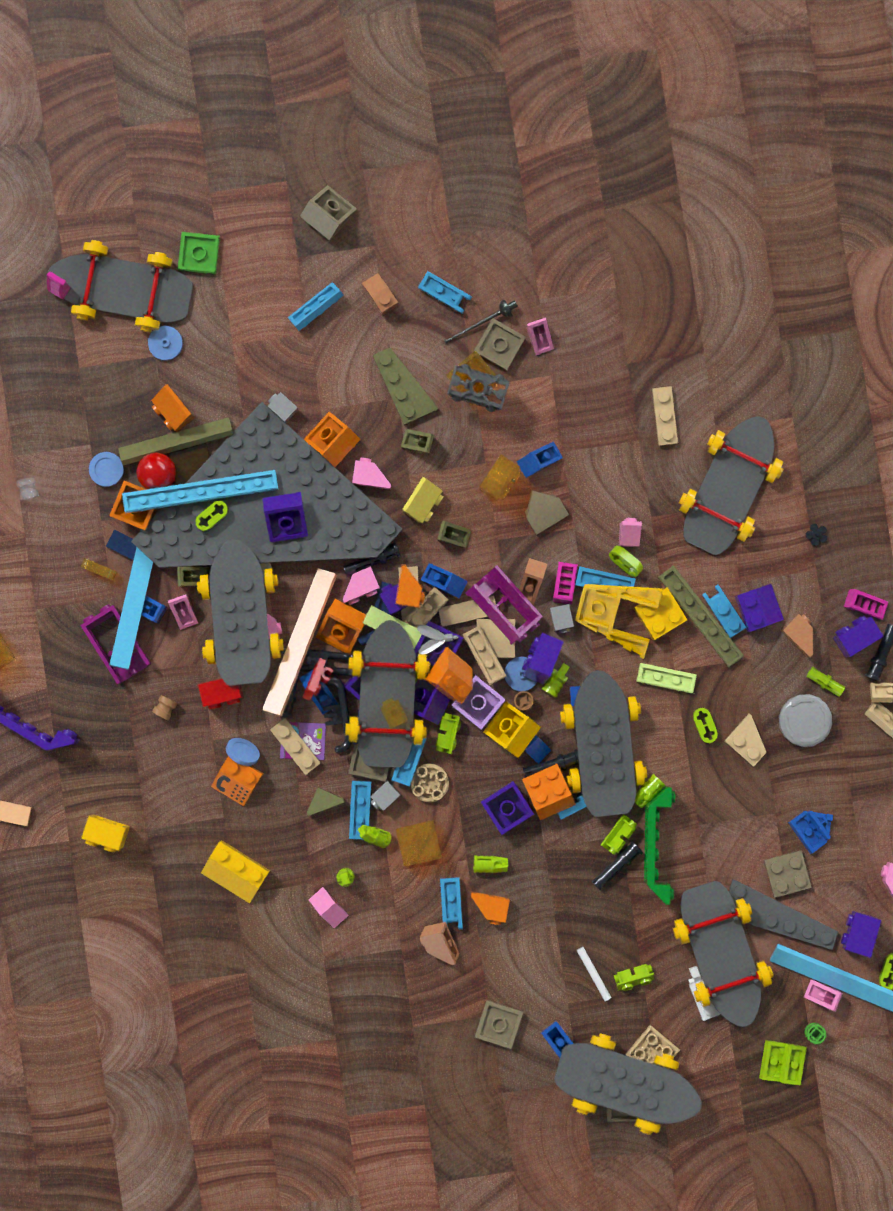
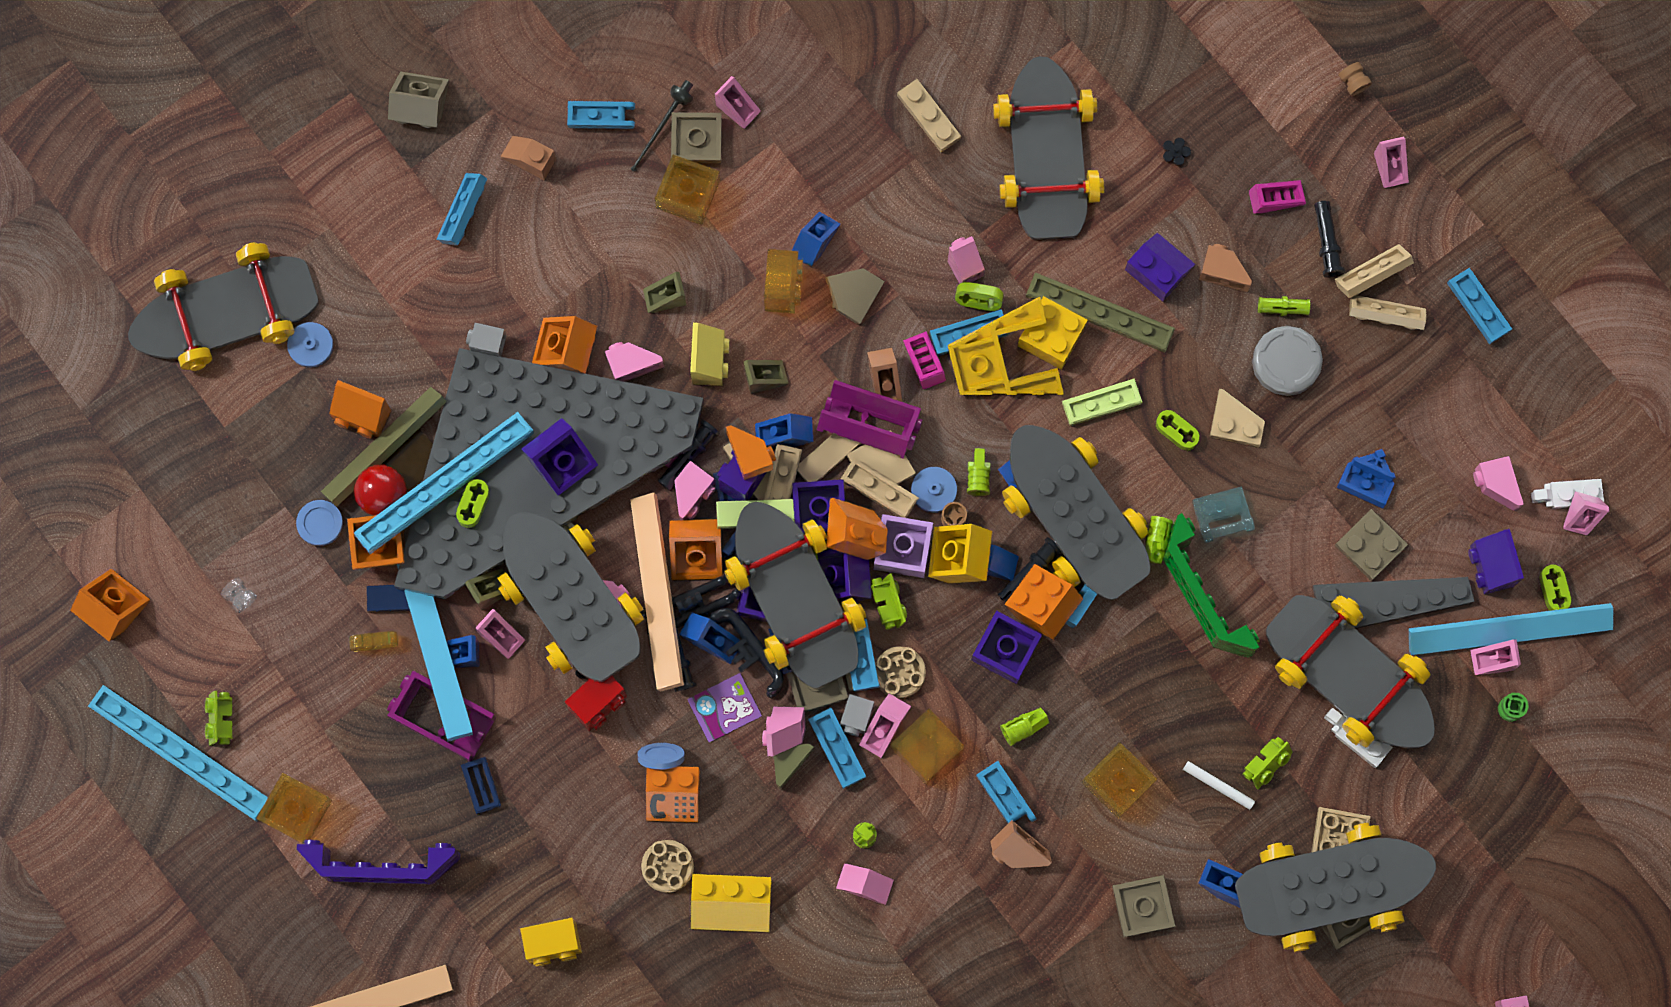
camera: 25 degrees left, 10 degrees down
(57, 285) = (147, 342): dark pink slope -> none
(124, 705) = (487, 805): none -> dark blue tile
(164, 707) = (540, 757): medium nougat wheel -> none
(198, 253) = (293, 224): bright green tile -> none
(208, 824) = (667, 866): none -> tan tile
(295, 746) = (719, 717): tan plate -> none
(316, 676) = (699, 614): plate -> none
(331, 780) = (784, 729): none -> bright pink slope
(375, 836) = (872, 766): lime hinge -> none
(393, 713) = (812, 606): clear yellow brick -> none
(399, 813) = (885, 725): none -> bright pink slope
(405, 391) = (615, 246): olive wing -> none
(437, 637) = (815, 496): light grey piece -> none
(478, 398) = (700, 203): dark grey piece -> none
(492, 907) = (1055, 773): orange slope -> none
(529, 936) = (1119, 780): none -> clear yellow brick
(542, 659) = (947, 453): dark purple brick -> none
(561, 618) = (943, 400): light grey brick -> none
(613, 841) = (1152, 617): lime hinge -> none
(624, 859) = (1175, 633): black pin -> none
(703, 792) = (1222, 506): none -> clear light blue plate
(724, 612) = (1124, 292): dark azure hinge -> none
(782, 1062) = (1496, 763): lime slope -> none
(858, 636) = (1291, 229): dark purple brick -> none

